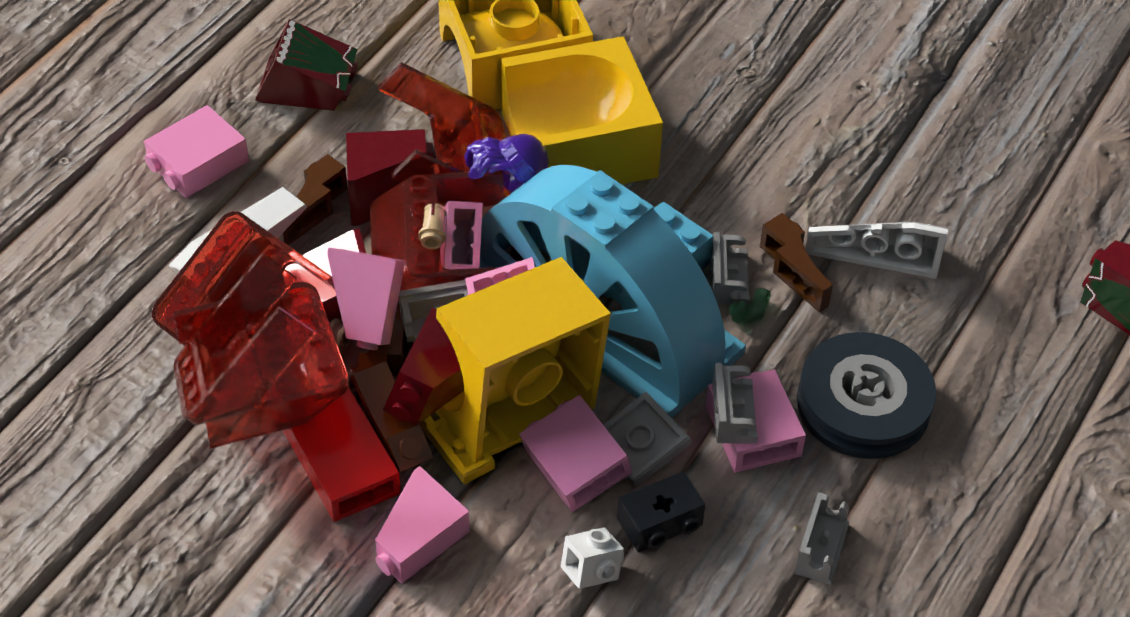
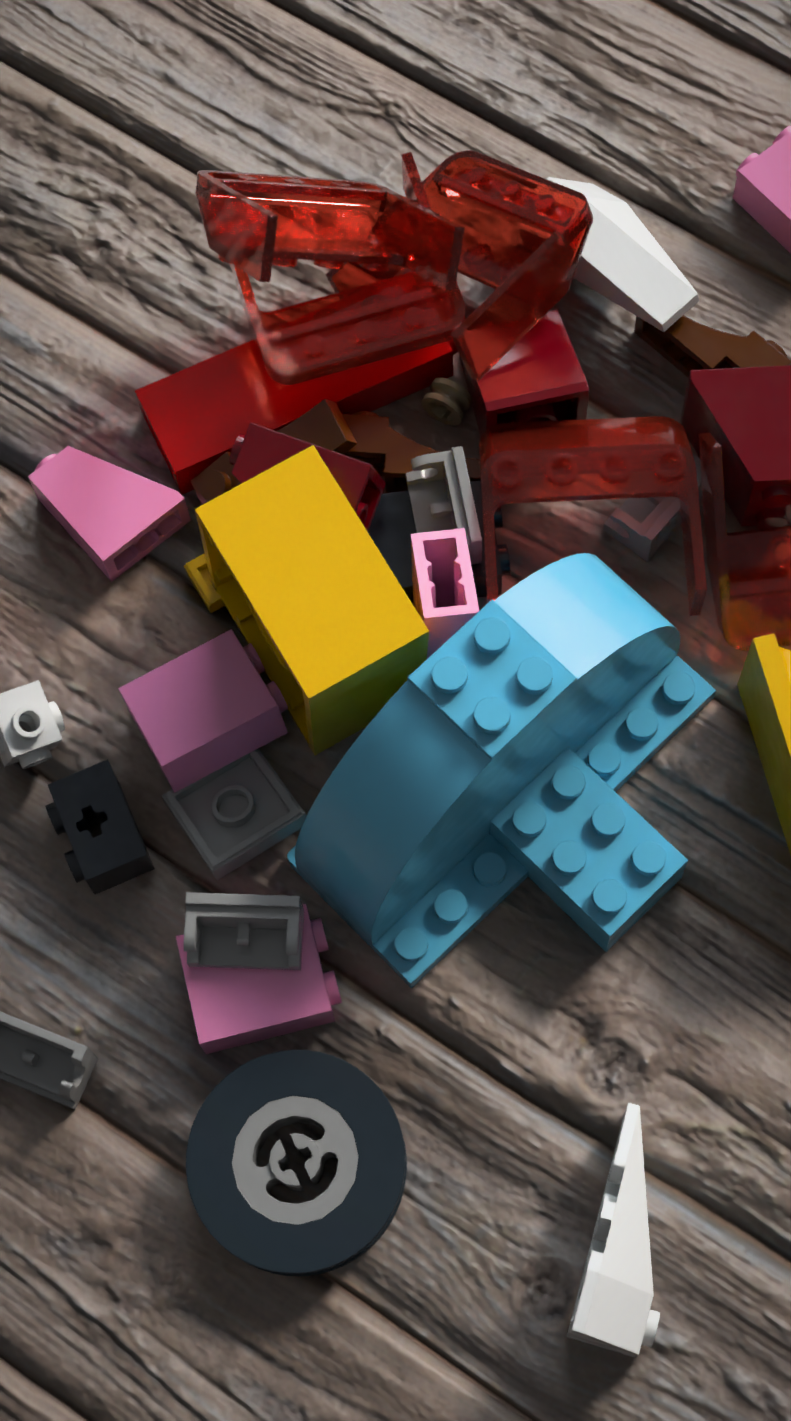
camera: 100 degrees right, 20 degrees up
(366, 294) = (451, 396): bright pink slope -> none
(432, 233) = (559, 476): tan pin -> none
(463, 235) = (576, 523): bright pink brick -> none
(517, 156) = (721, 593): dark purple hair -> none
(729, 270) = (568, 973): light grey hinge -> none
(746, 314) = (486, 1004): clear green arm -> none
(784, 243) = (626, 1072): reddish brown slope -> none

